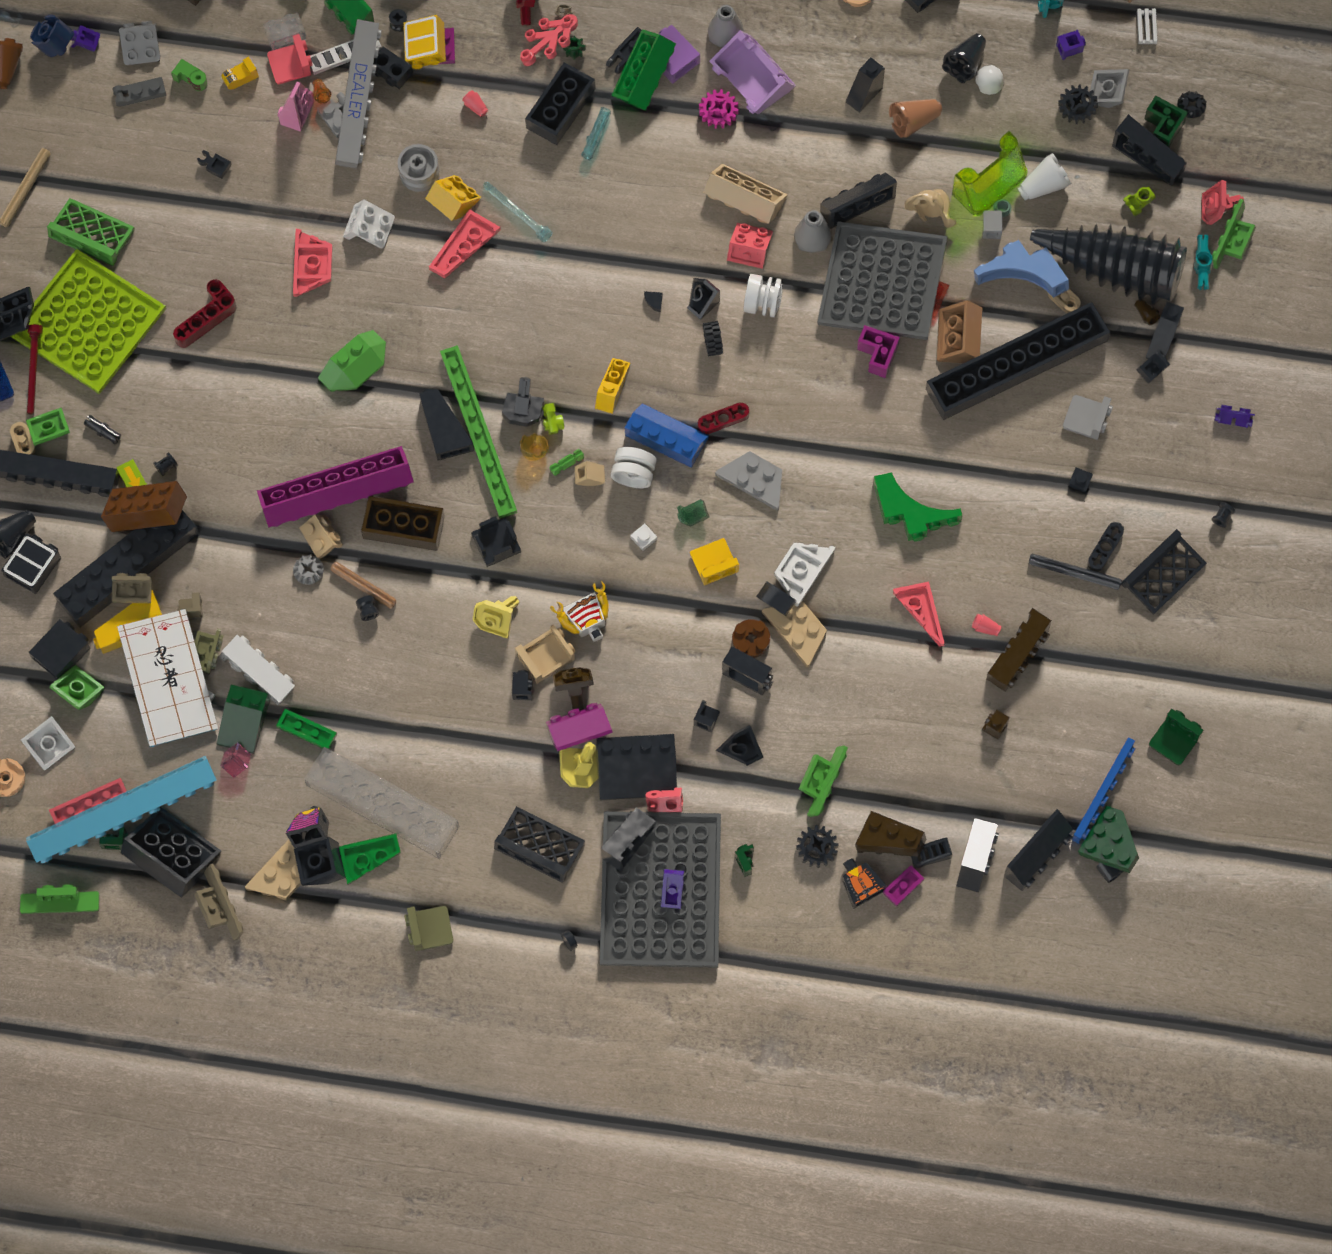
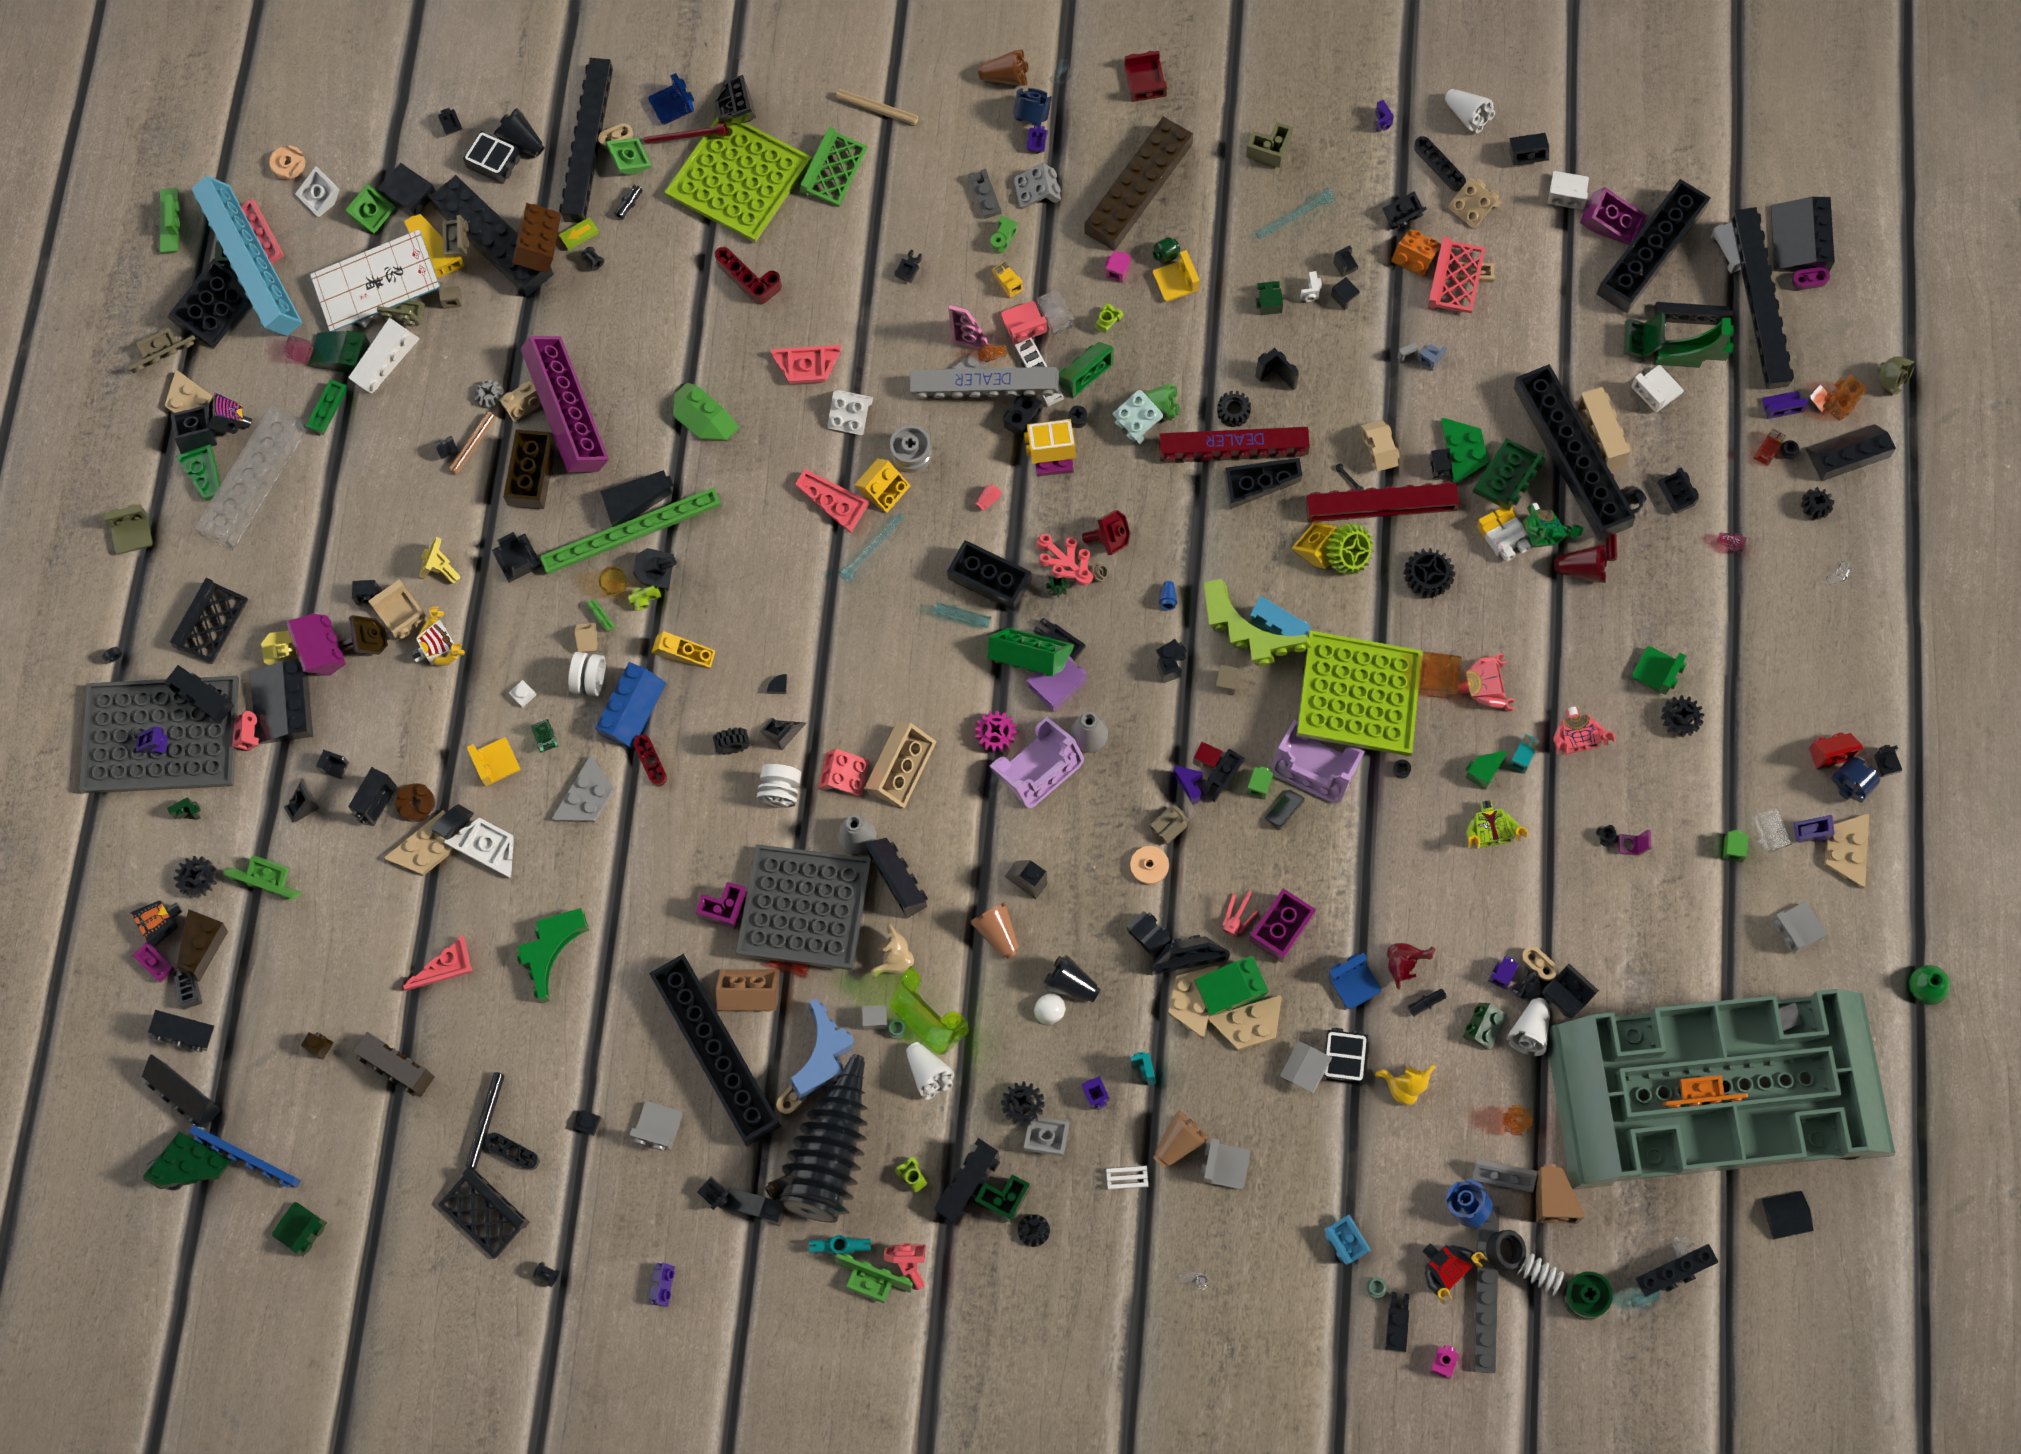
camera: 90 degrees right, 0 degrees up
(986, 625) = (424, 1031): coral cone -> none

